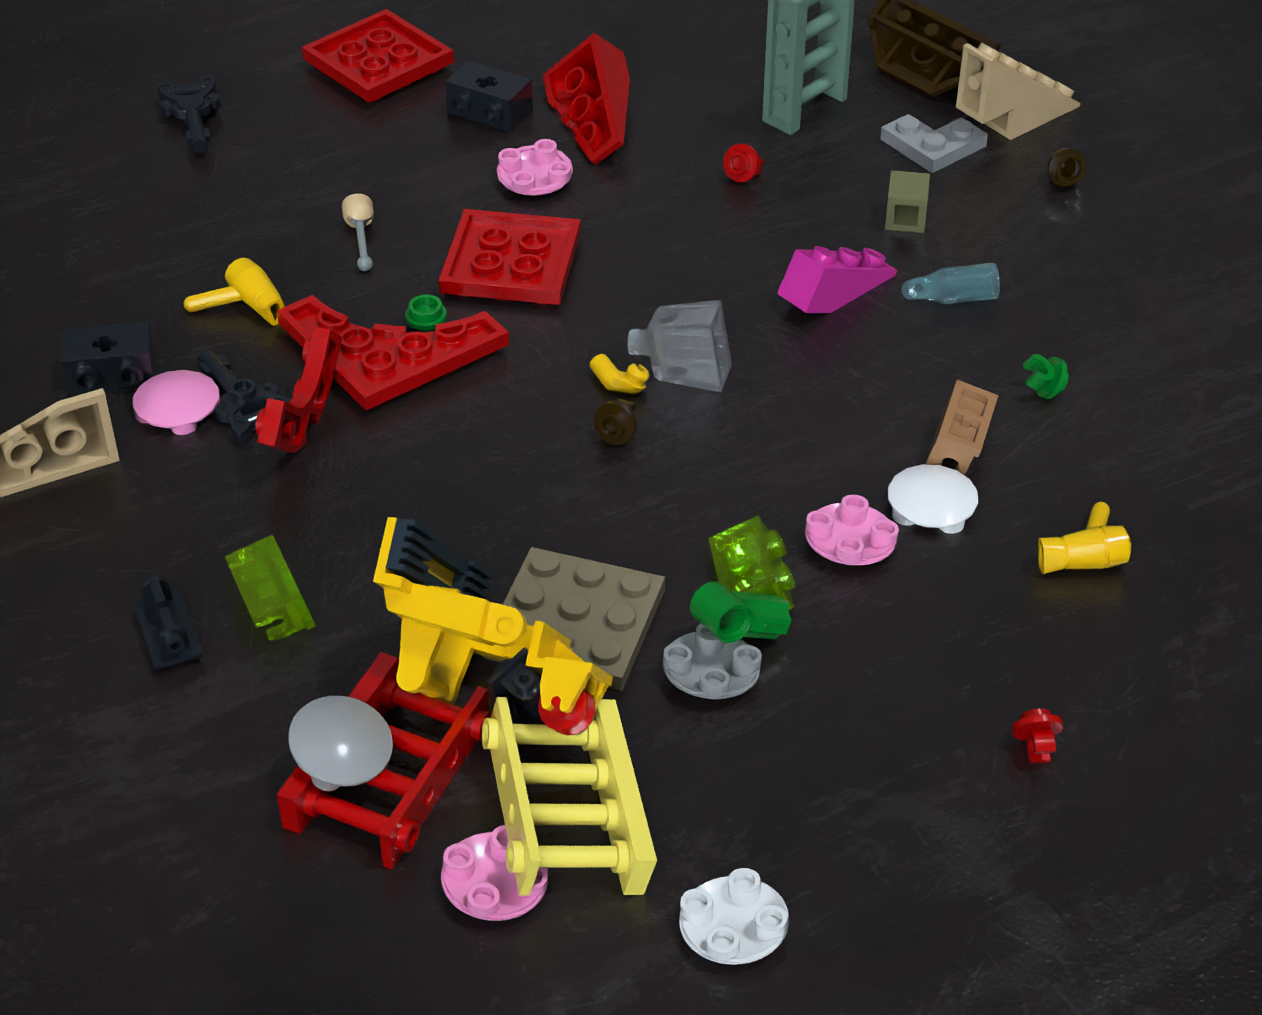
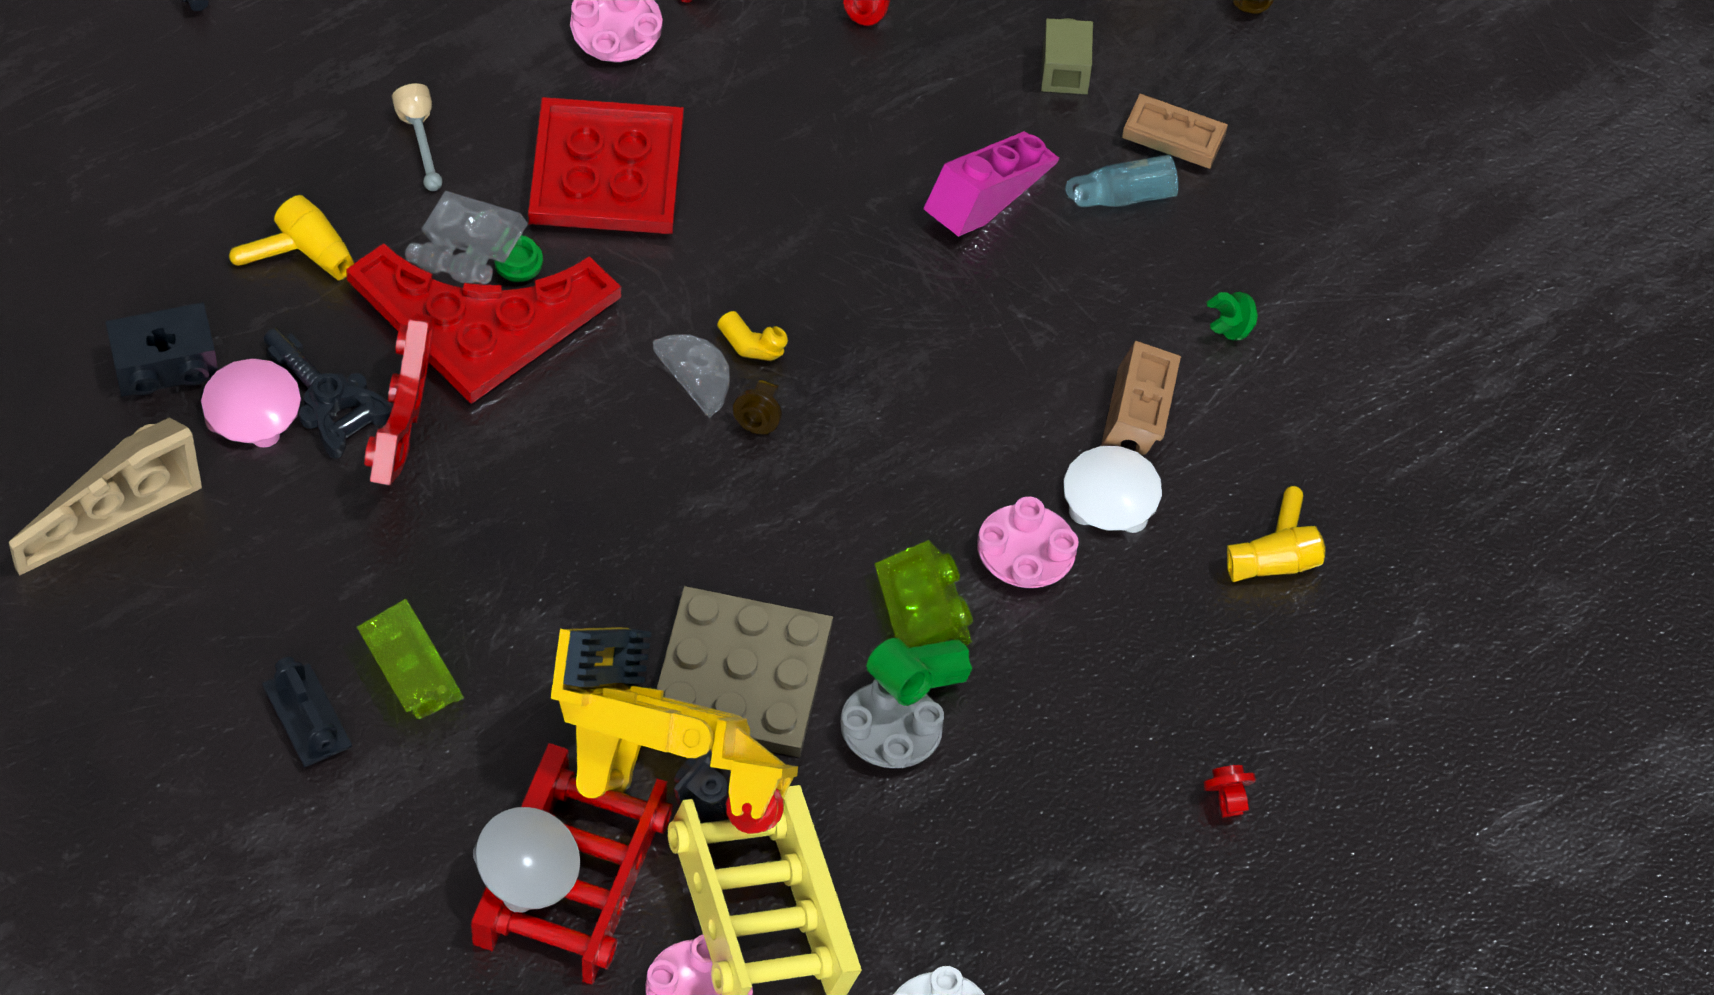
camera: 10 degrees left, 15 degrees up
(383, 292) = (471, 226): none -> clear plate
(567, 394) = (697, 367): none -> clear plate
(686, 345) = (826, 299): clear torso -> none
(1009, 255) = (1175, 131): none -> medium nougat plate

